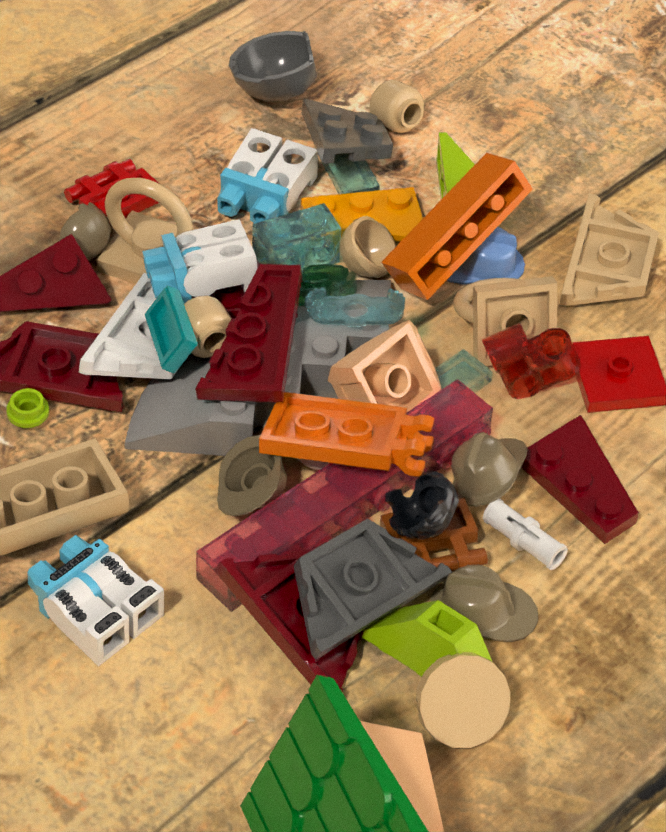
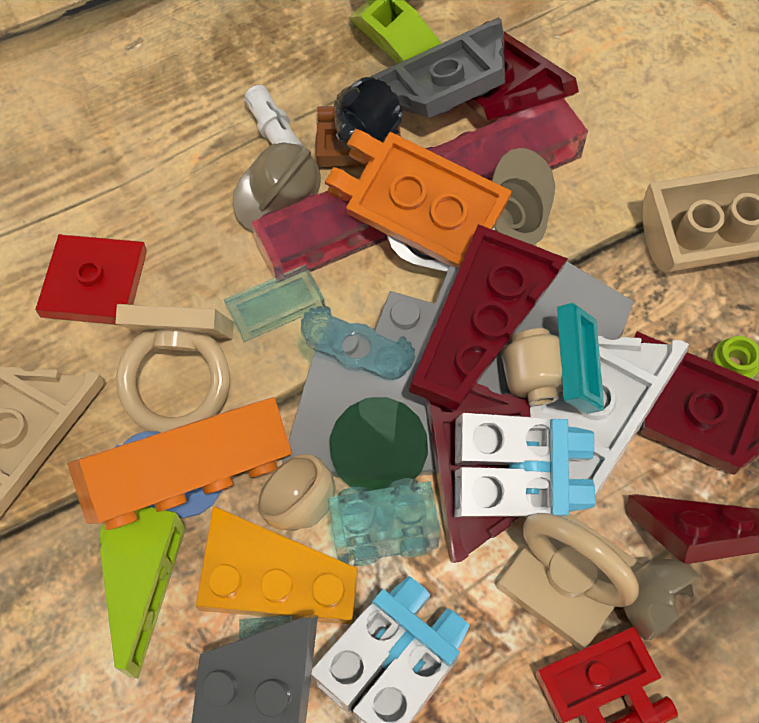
camera: 160 degrees left, 15 degrees up
(95, 597) = (680, 130): white hips -> none
(387, 370) = (353, 274): light nougat slope -> none
(495, 606) = (327, 73): dark tan piece -> none
(532, 363) = (190, 283): clear red piece -> none
(581, 479) = (192, 177): dark red wing -> none

